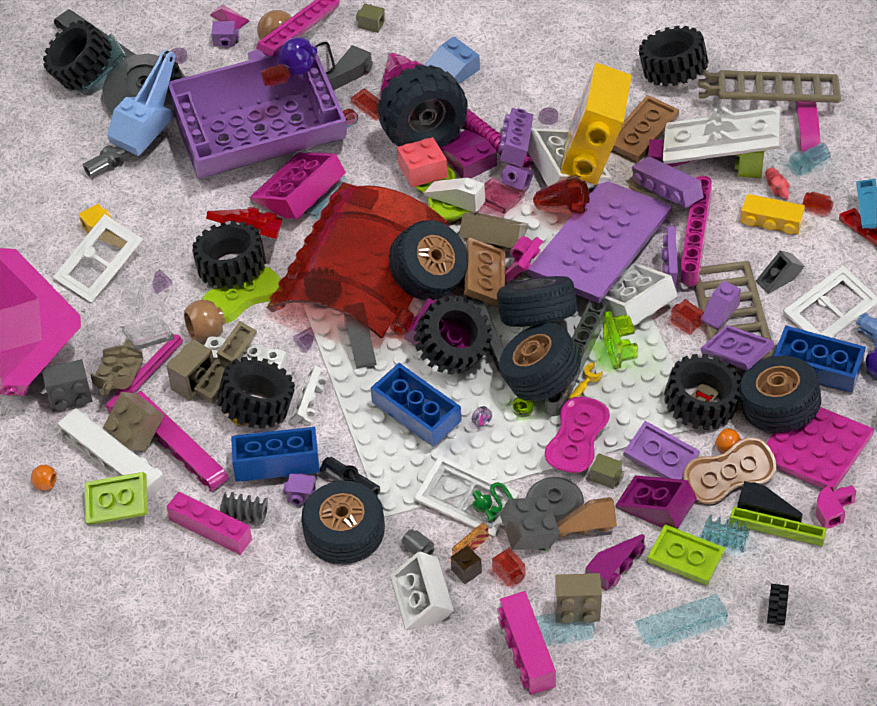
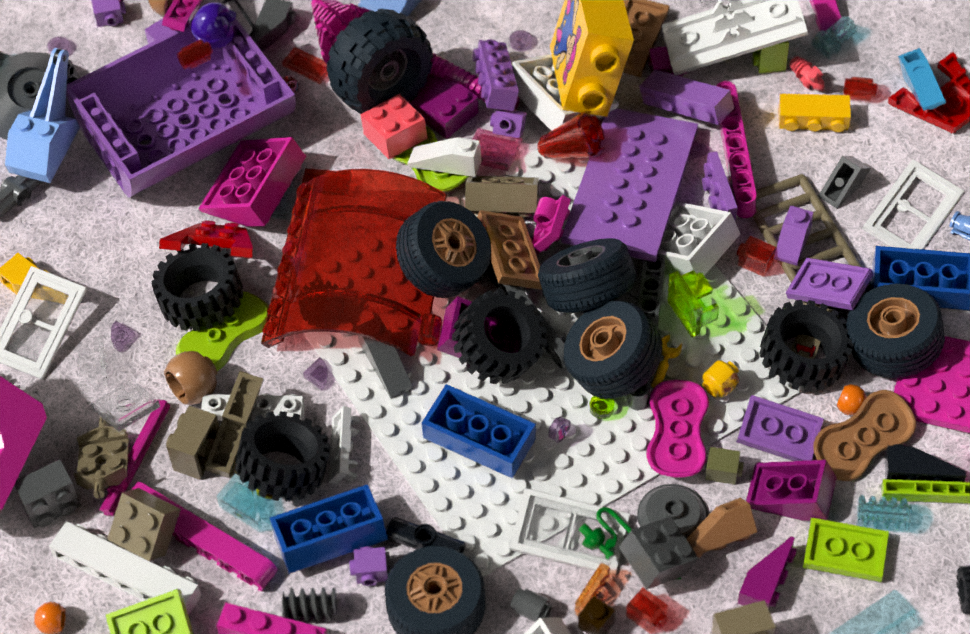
camera: 15 degrees left, 5 degrees up
(215, 422) = (241, 502): none -> clear light blue slope
(624, 403) = (720, 378): none -> yellow head

